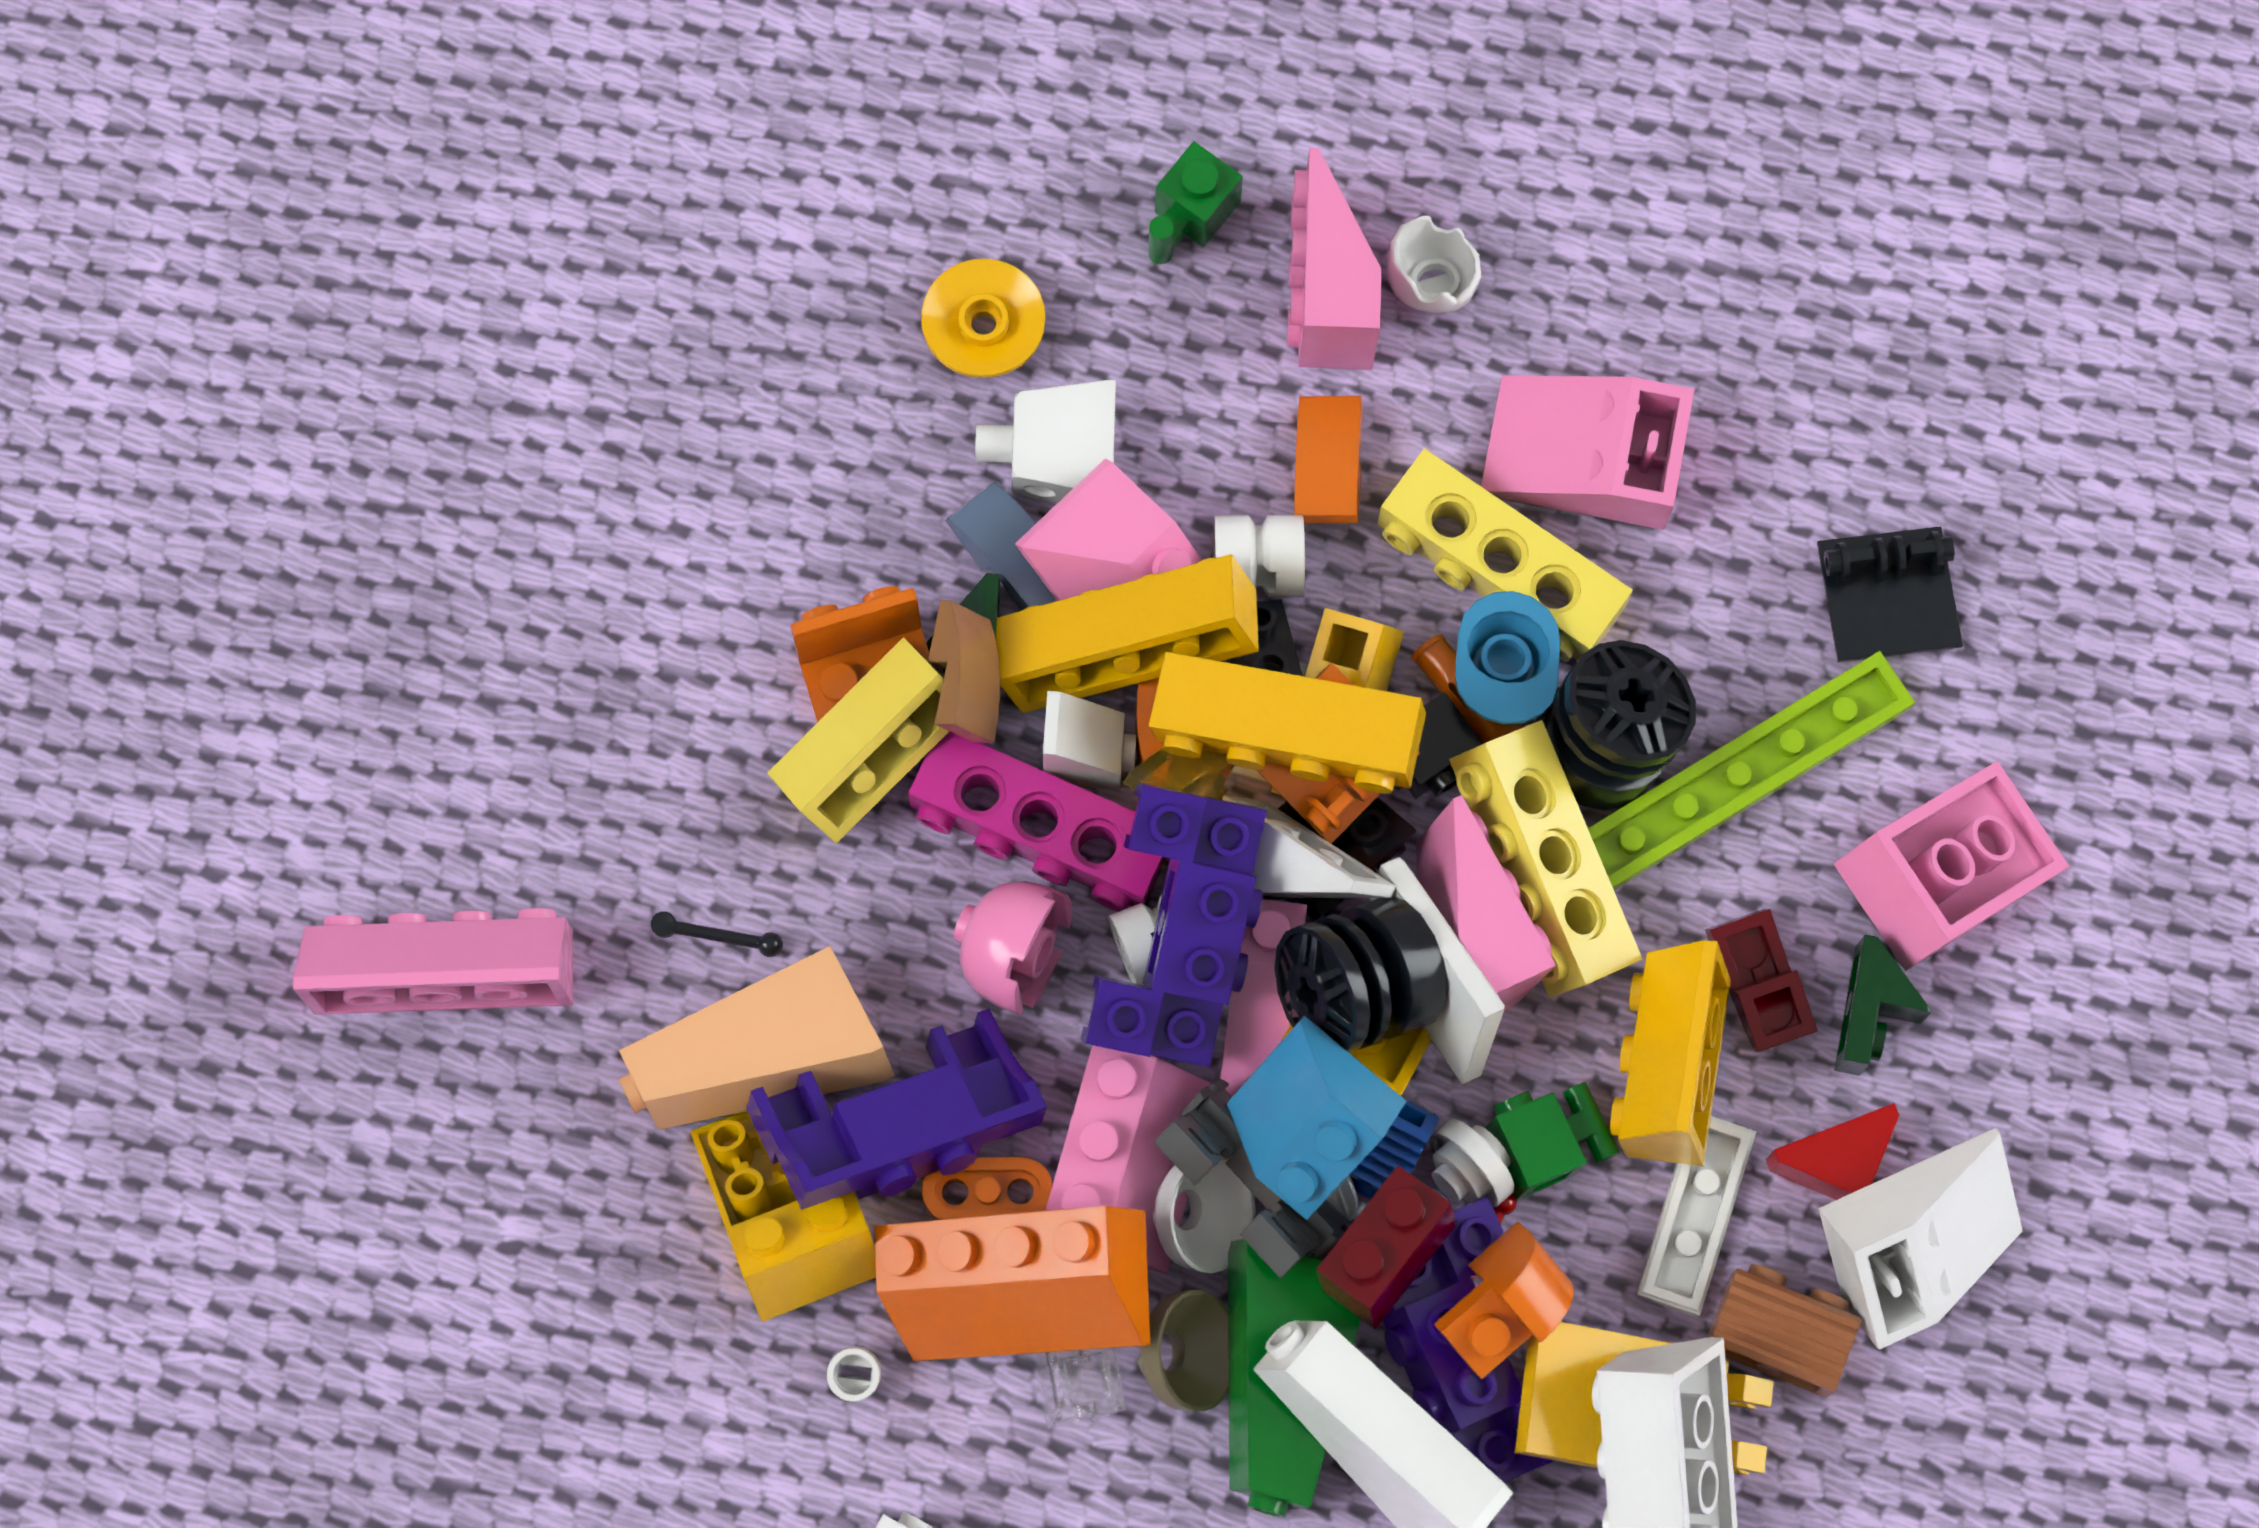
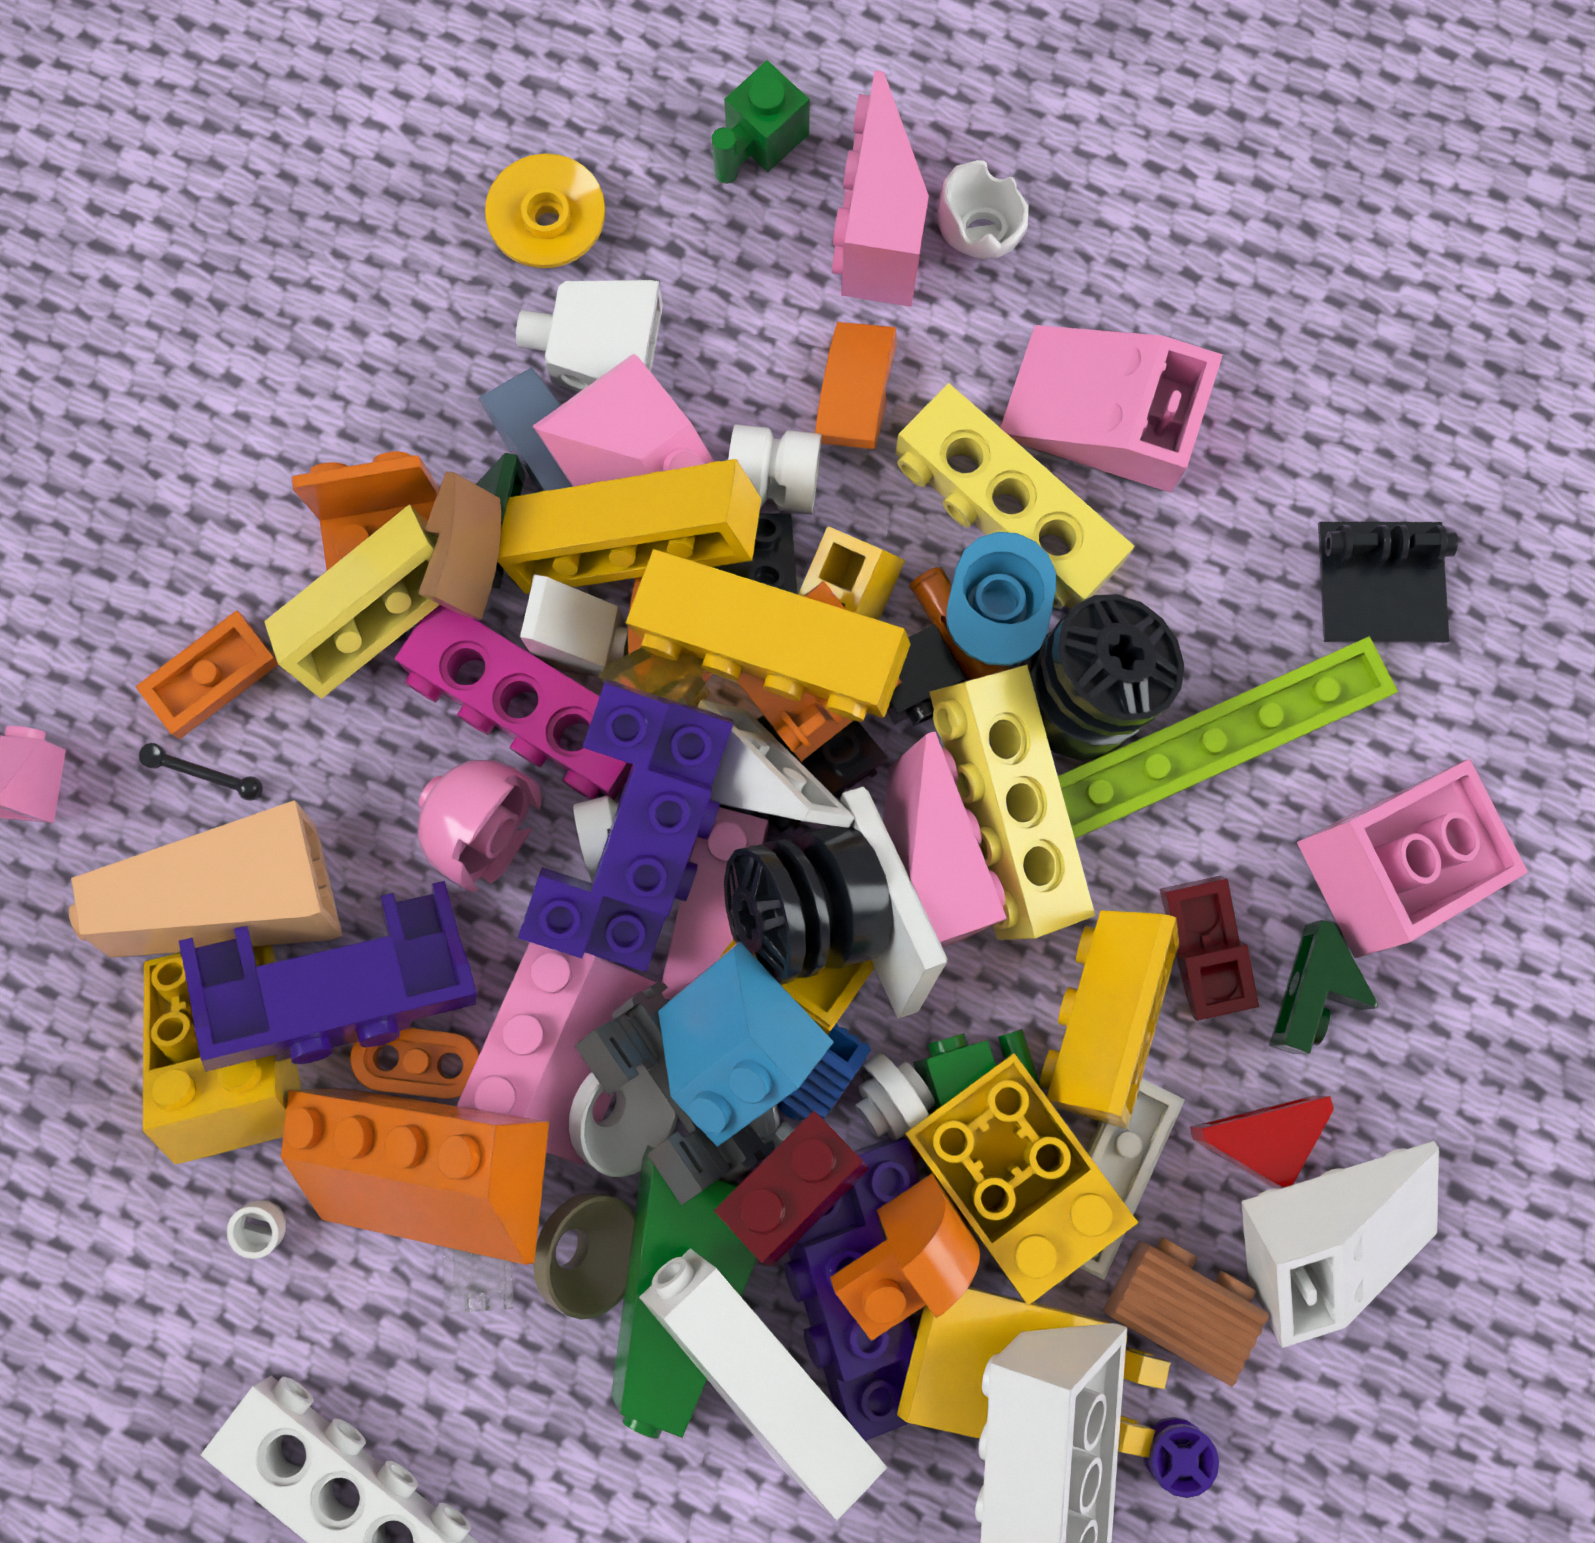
camera: 10 degrees right, 5 degrees up
(711, 834) = (207, 675): none -> orange plate
(1603, 1216) = (1021, 1179): none -> yellow slope
(1804, 1463) = (1191, 1467): none -> dark purple wheel

